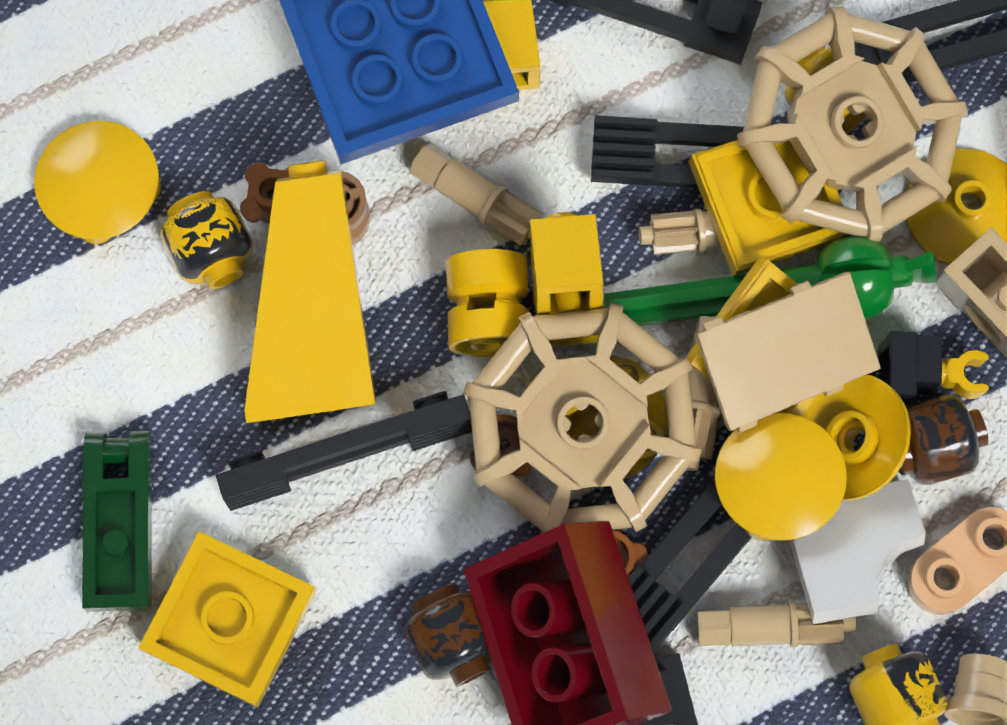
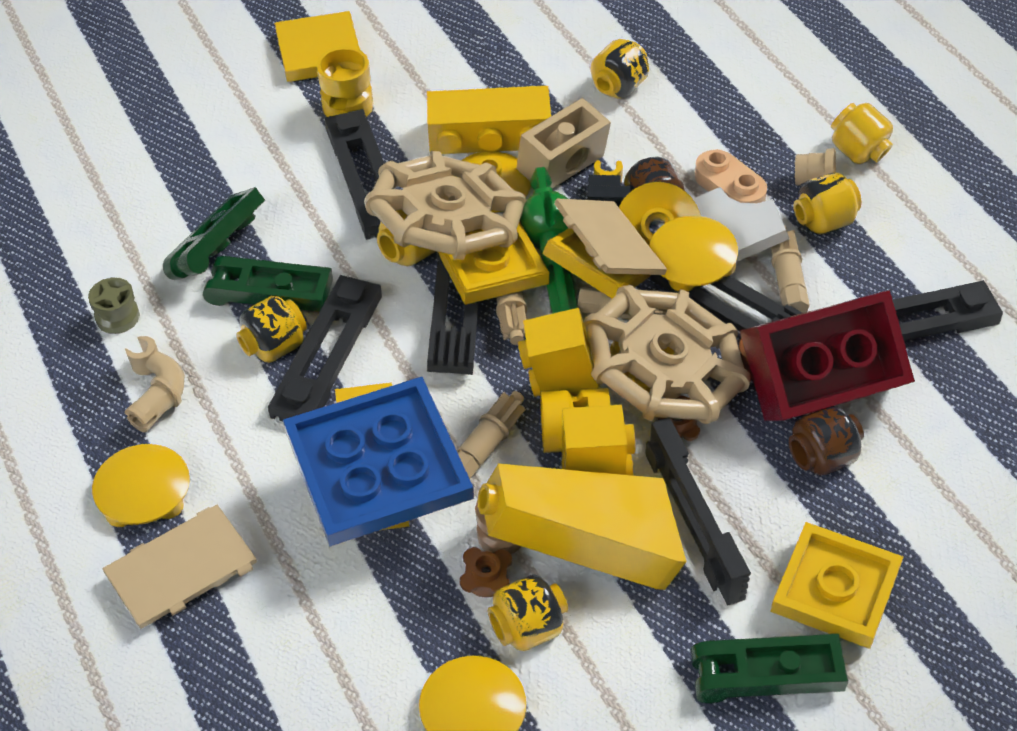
camera: 90 degrees left, 25 degrees down
(410, 317) = (597, 440): none -> yellow brick

